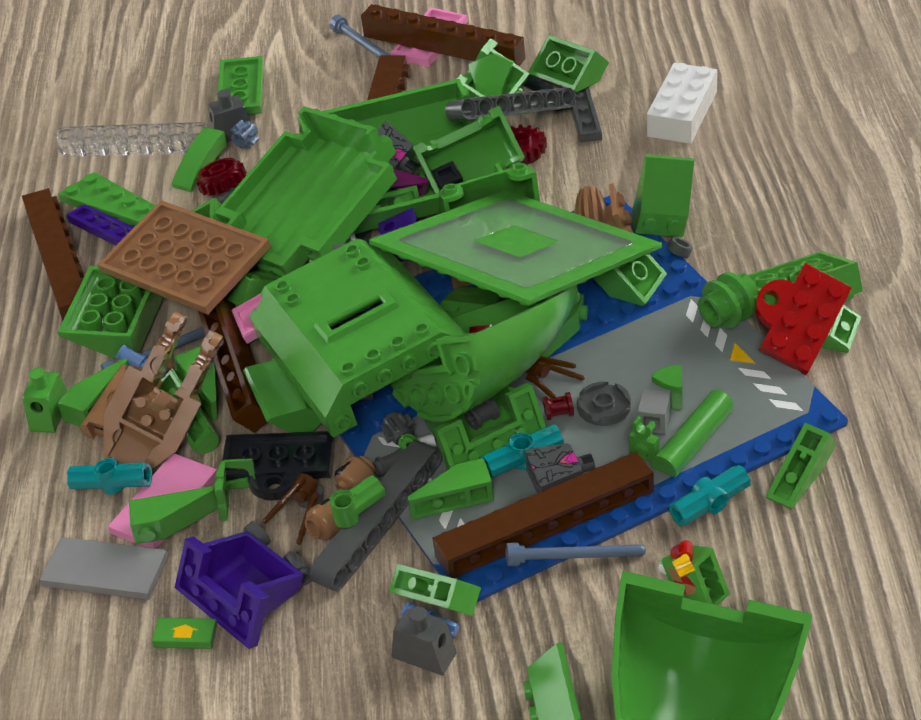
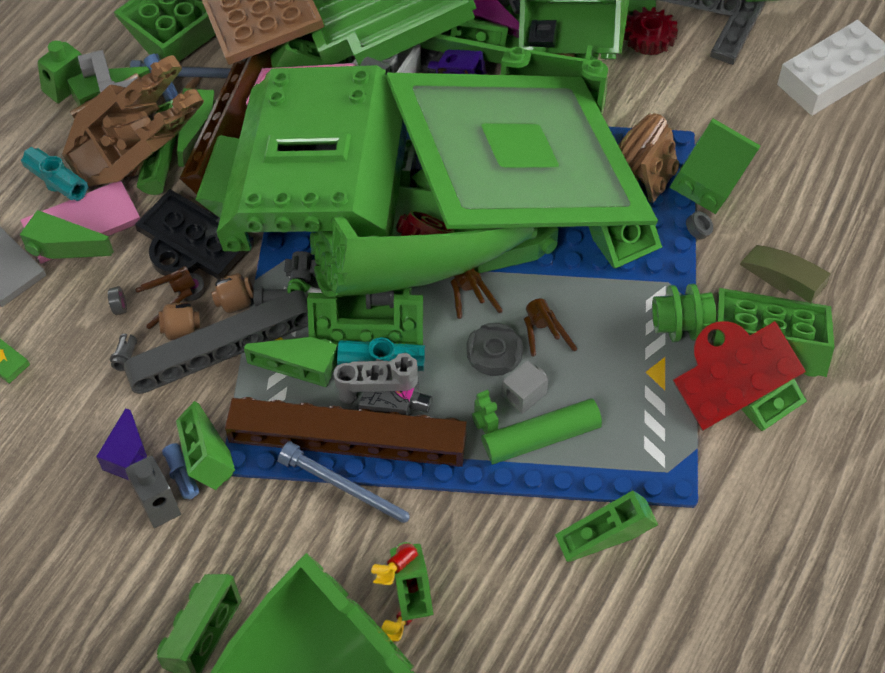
camera: 30 degrees right, 15 degrees up
(92, 377) = (95, 64): none -> light grey beam
(222, 487) = (121, 244): bright green piece -> none
(236, 582) = (67, 337): dark purple windscreen -> none
(348, 504) = (197, 322): bright green piece -> none
(369, 630) = (122, 446): none -> dark purple slope
(522, 467) = (394, 375): none -> light grey beam
(558, 406) = (450, 328): dark red bush -> none
(620, 361) = (541, 316): none -> reddish brown plant
(671, 379) = (560, 368): bright green tile -> none
(709, 495) = (504, 503): teal piece -> none
(771, 243) = (787, 272): none -> olive slope

